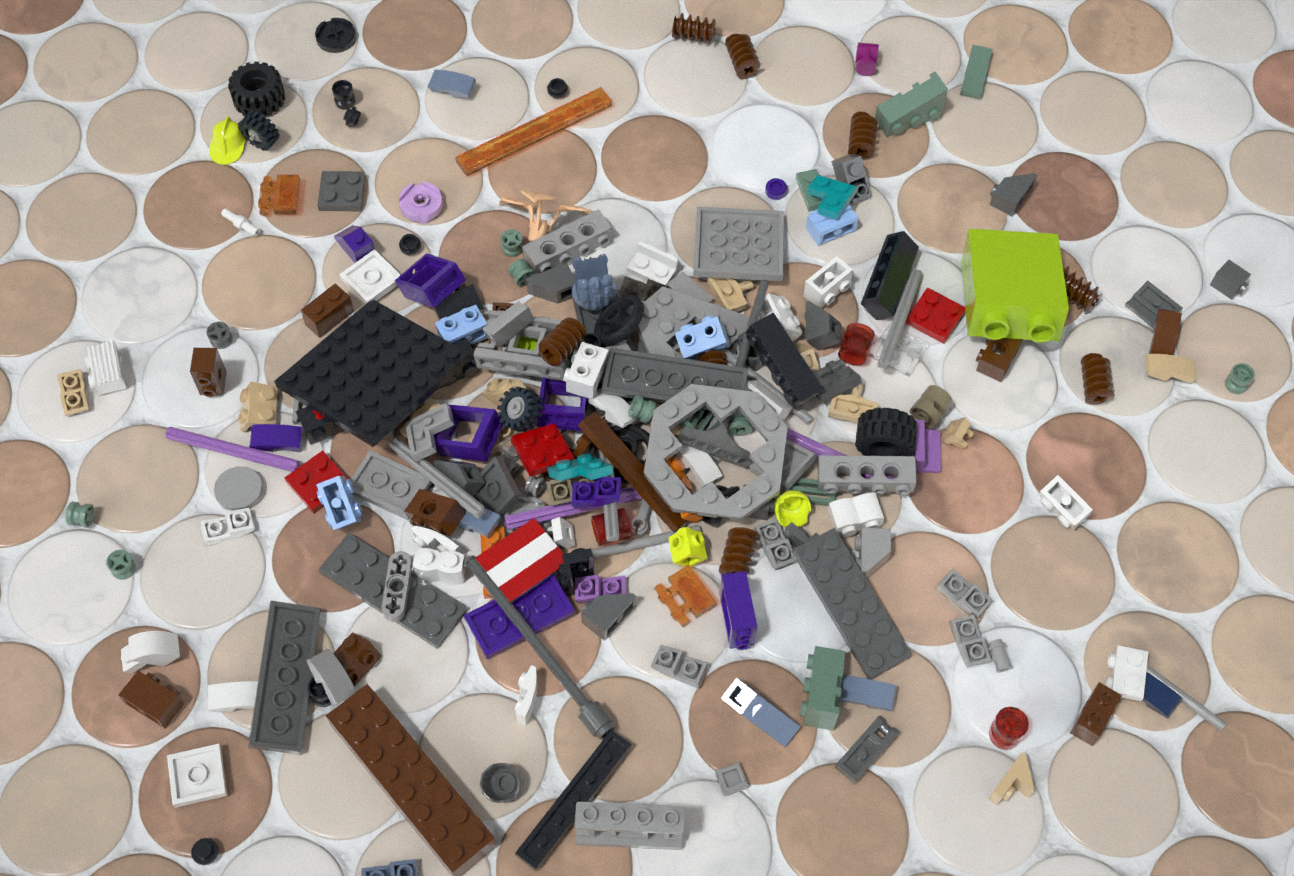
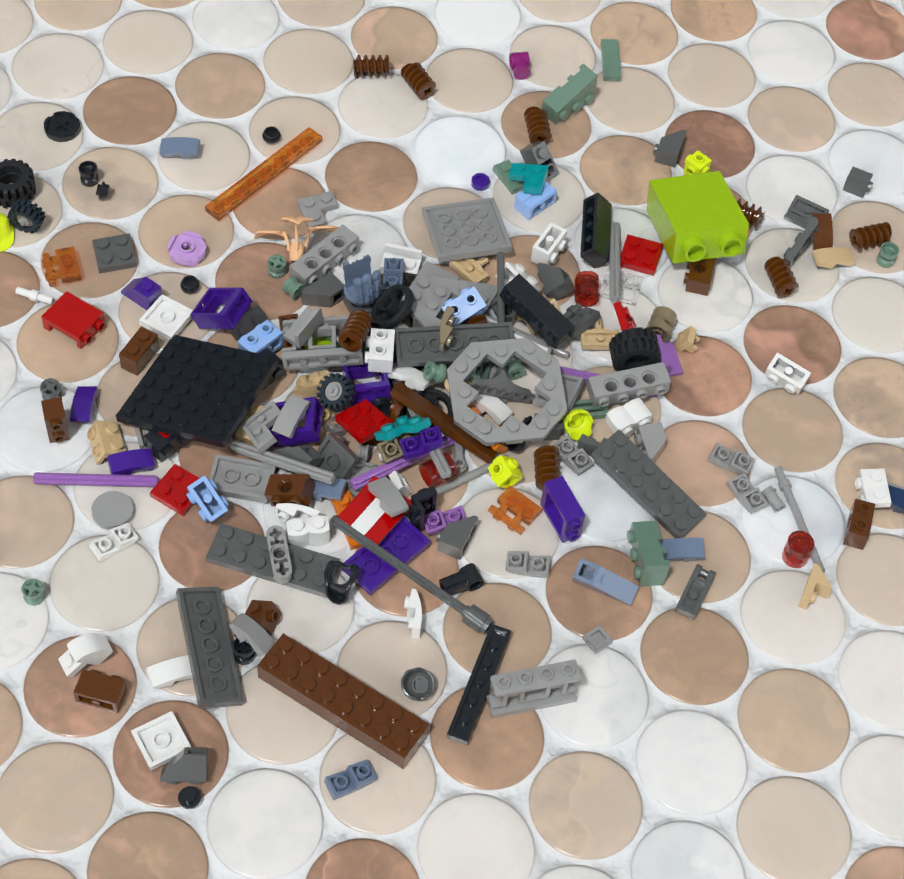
camera: 20 degrees left, 5 degrees down
(213, 815) = (187, 766): none -> dark grey slope
(246, 360) = (83, 404): none -> dark purple slope
(270, 259) = (74, 319): none -> red panel
(449, 649) = (339, 592): none -> black piece
(459, 424) = (290, 415): none -> light grey slope
(539, 548) = (390, 498): none -> light grey slope
(571, 434) = (383, 404): none -> black plate
(577, 180) = (315, 206): none -> light grey plate
(601, 667) = (466, 579): none -> black piece
(636, 279) = (392, 272): none -> sand blue slope
(664, 365) = (446, 328): none -> dark tan slope
(886, 392) = (624, 317): none -> red plate
(1020, 643) = (785, 486): none -> light grey bar
(1037, 219) = (697, 164): none -> neon yellow brick
(1134, 341) = (801, 241): none -> dark grey plate
(1225, 350) = (870, 236): none -> reddish brown piece

